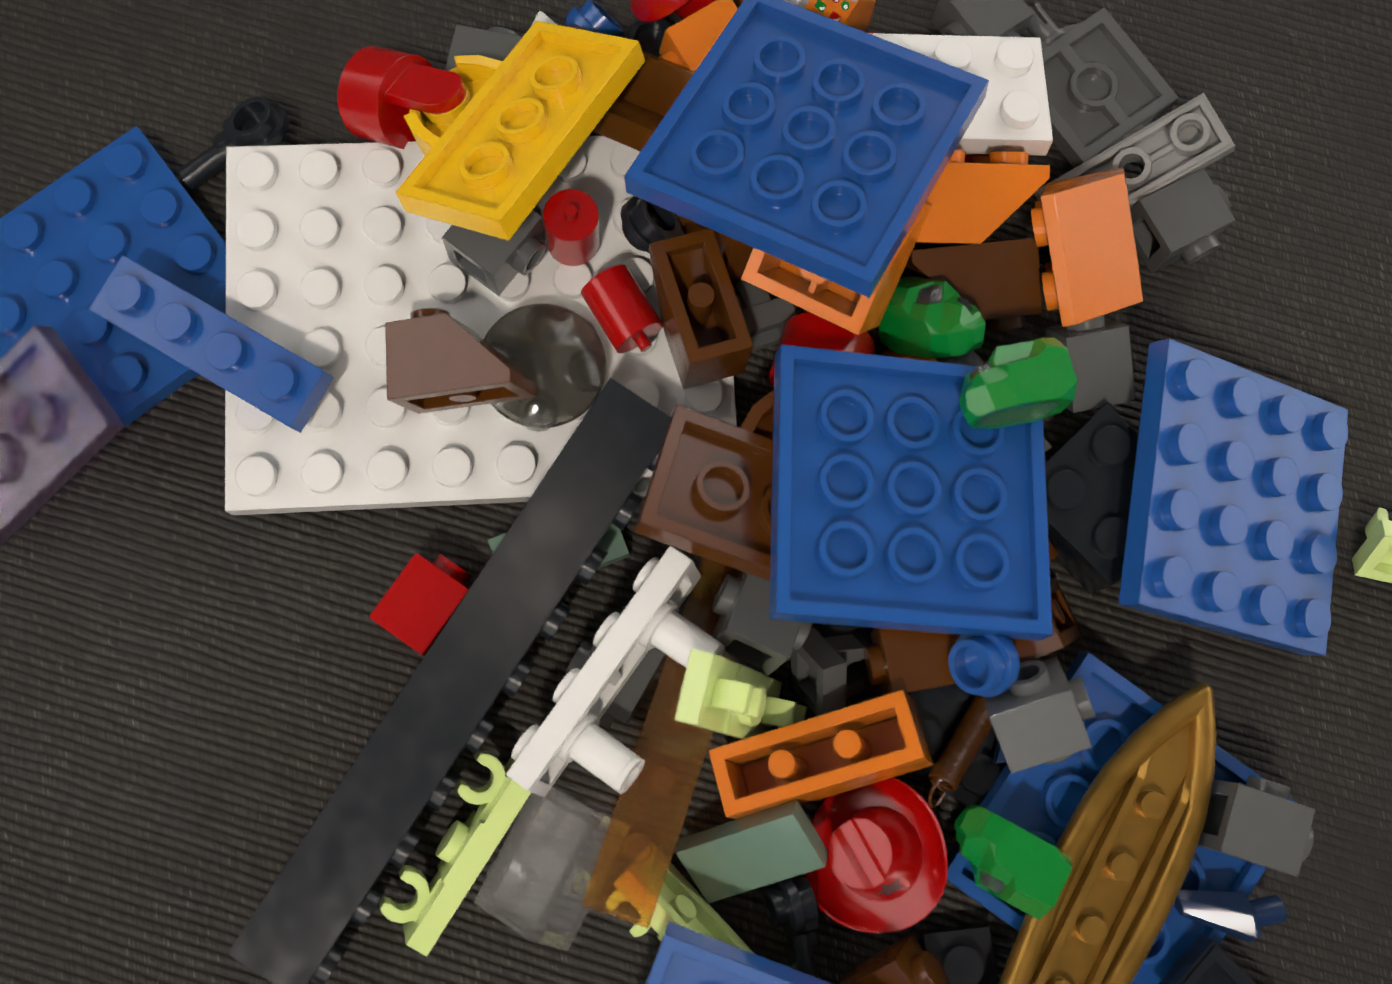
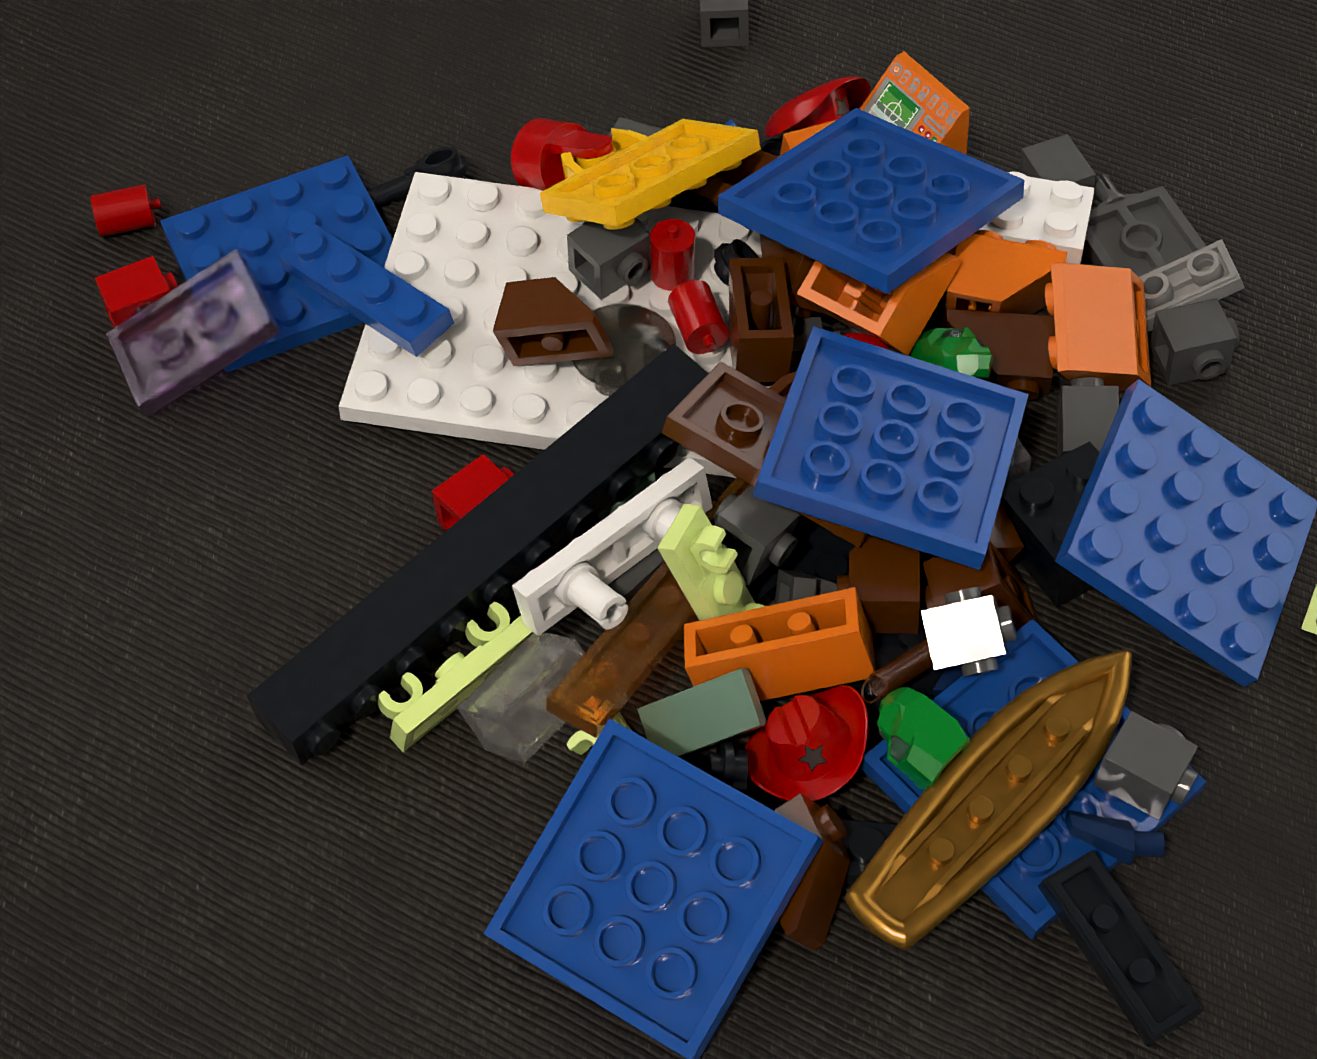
camera: 20 degrees right, 25 degrees down
(984, 664) = (928, 577): blue plate -> none
(1019, 385) = (997, 384): green rock -> none

